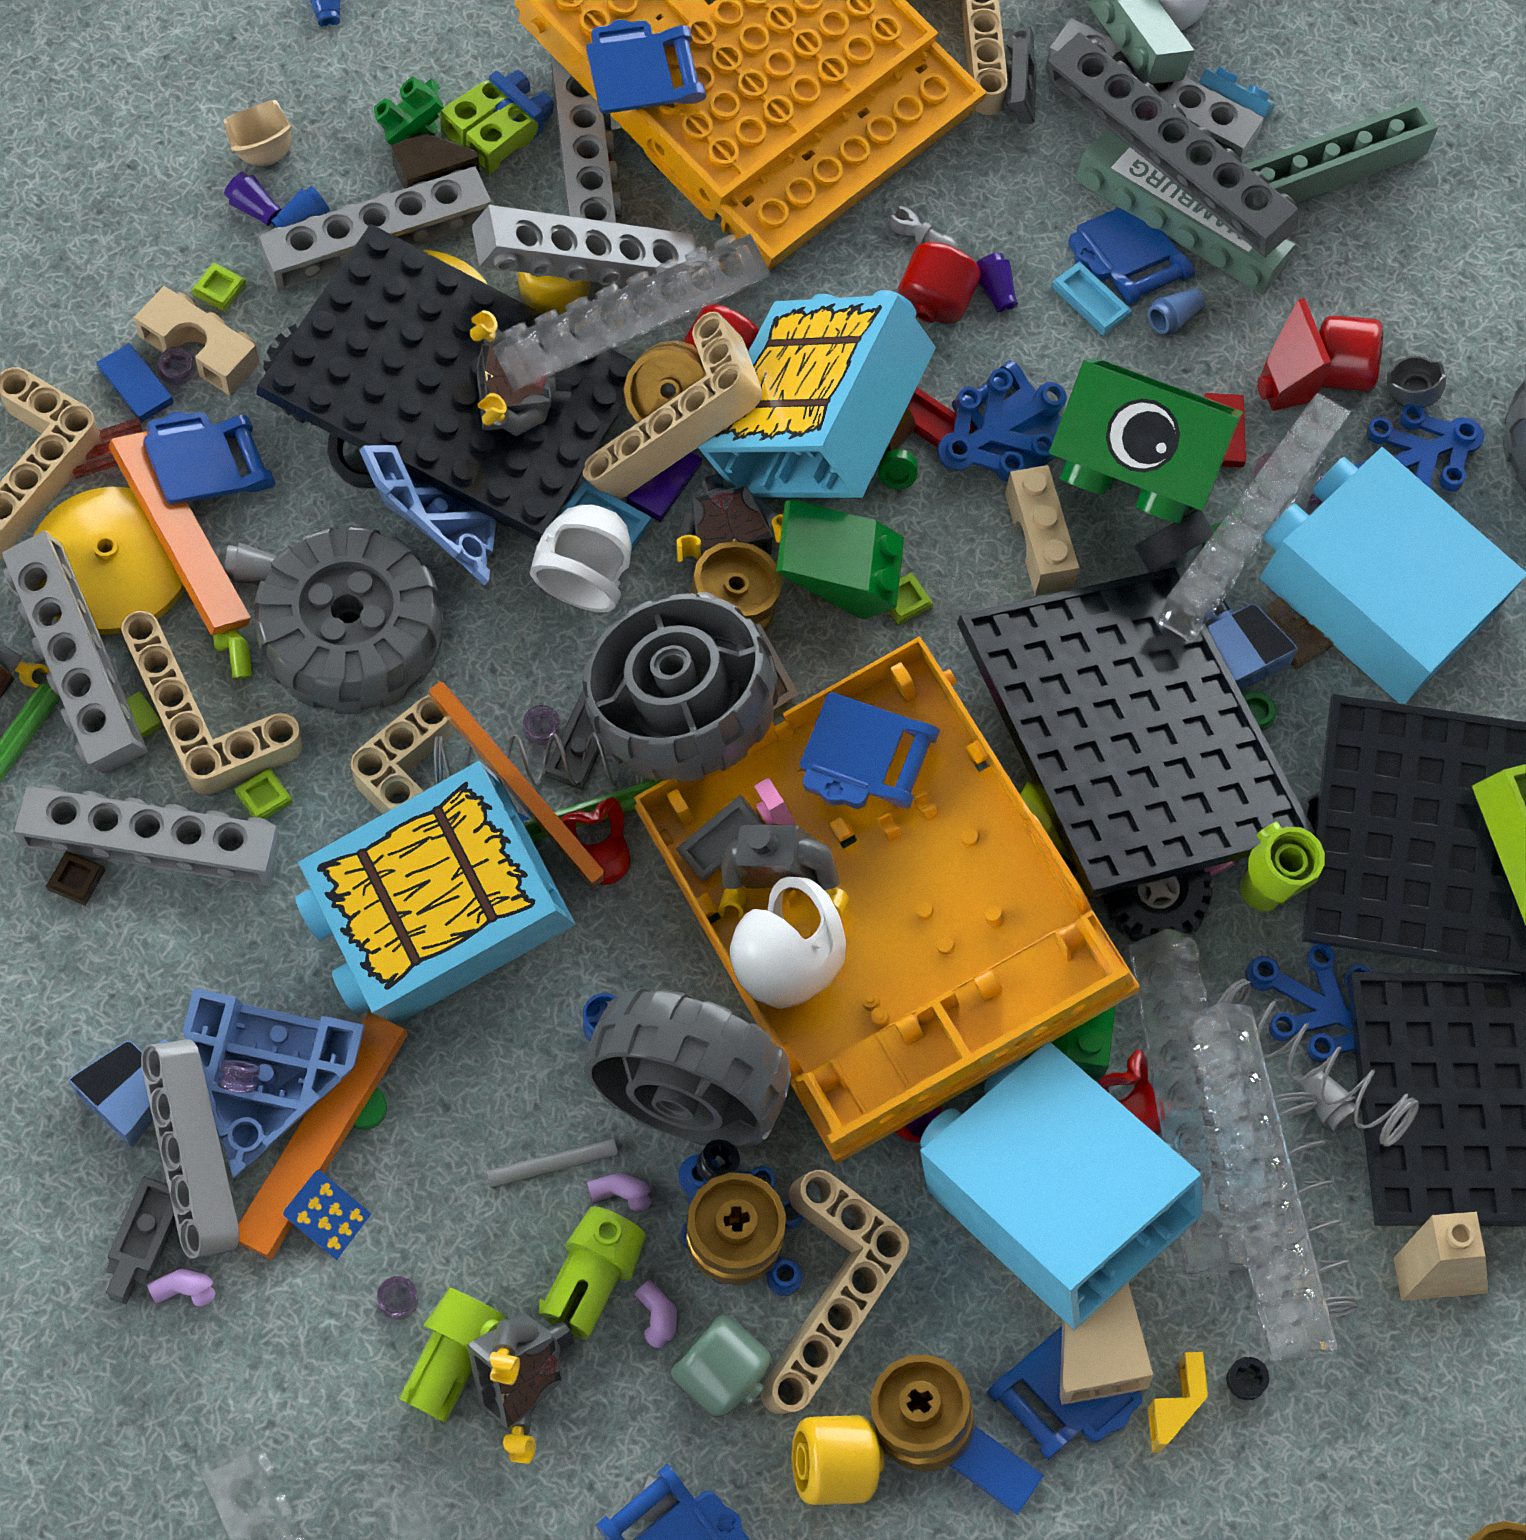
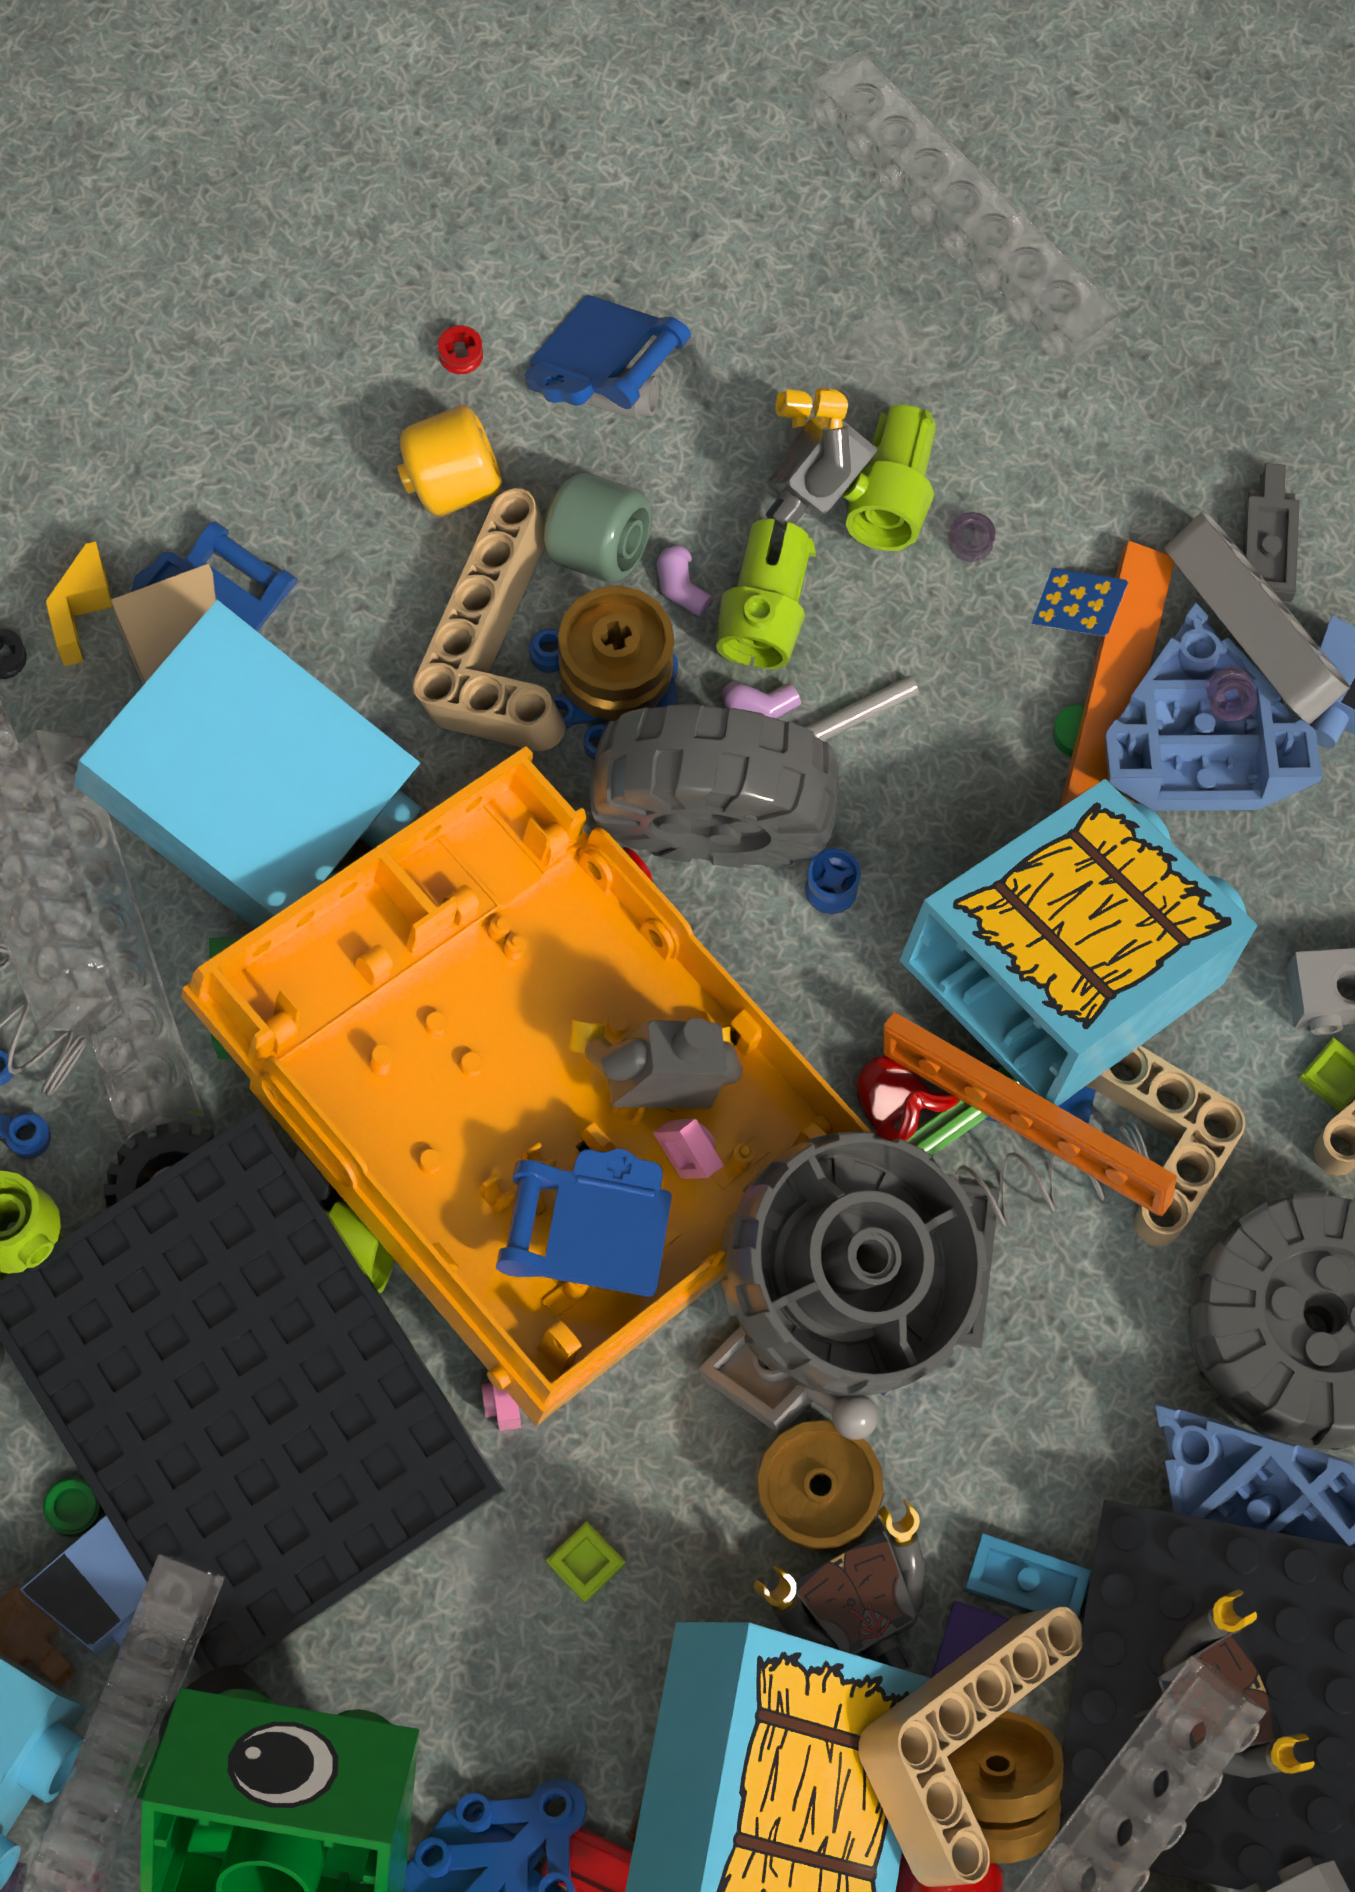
camera: 170 degrees right, 5 degrees up
(185, 1282) = (1193, 499): lavender arm -> none
(541, 712) = (1039, 1249): clear purple bush -> none
(583, 558) = (1037, 1490): white piece -> none
(705, 846) = (750, 1110): dark grey tile -> none
(776, 961) = (633, 942): white piece -> none
(841, 558) = (688, 1562): green slope -> none
(897, 1408) = (364, 521): pearl gold wheel -> none
(898, 469) = (630, 1760): green tile -> none
(997, 1471) = (277, 505): blue tile -> none
(1049, 548) = (411, 1700): tan arch -> none
(1141, 1099) = (170, 926): red piece -> none

